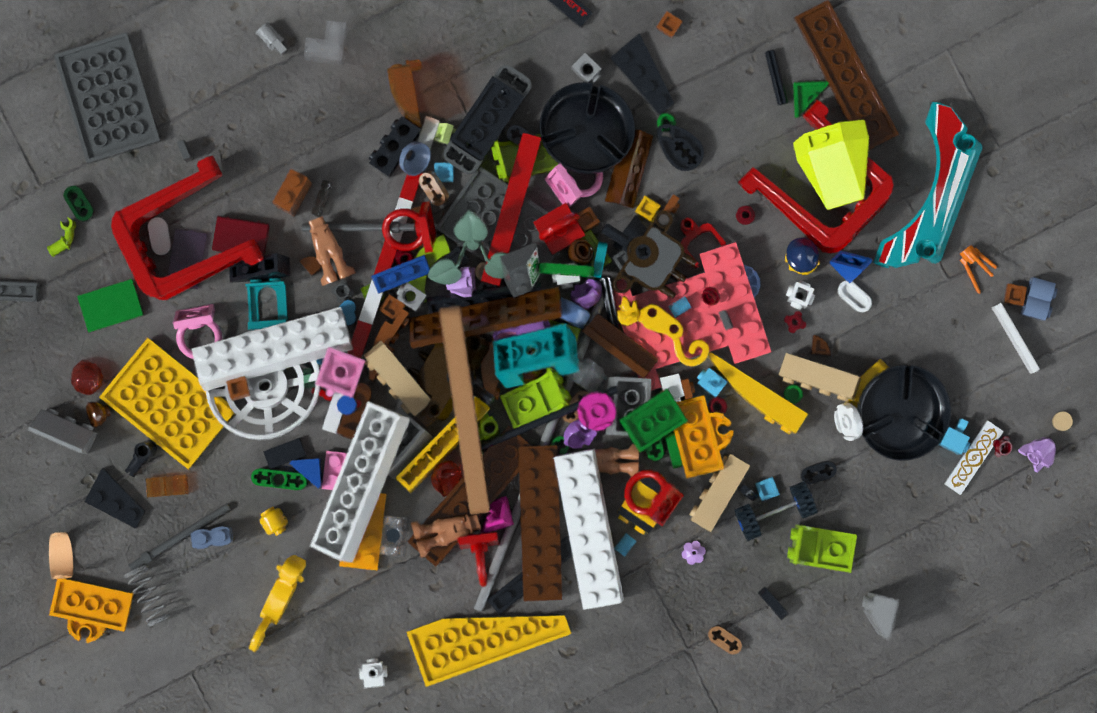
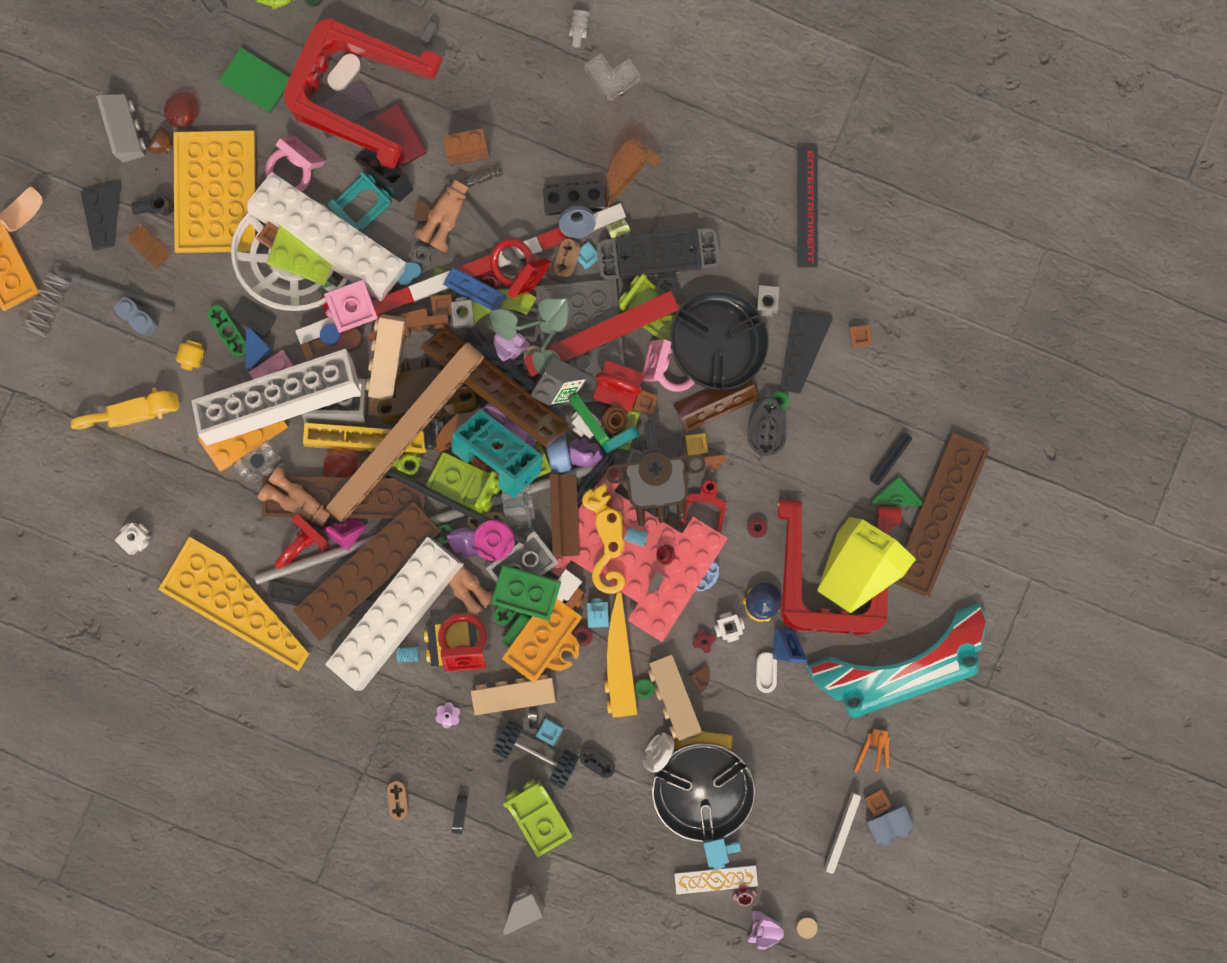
camera: 45 degrees right, 0 degrees up
(271, 382) = (297, 258): none -> lime wing

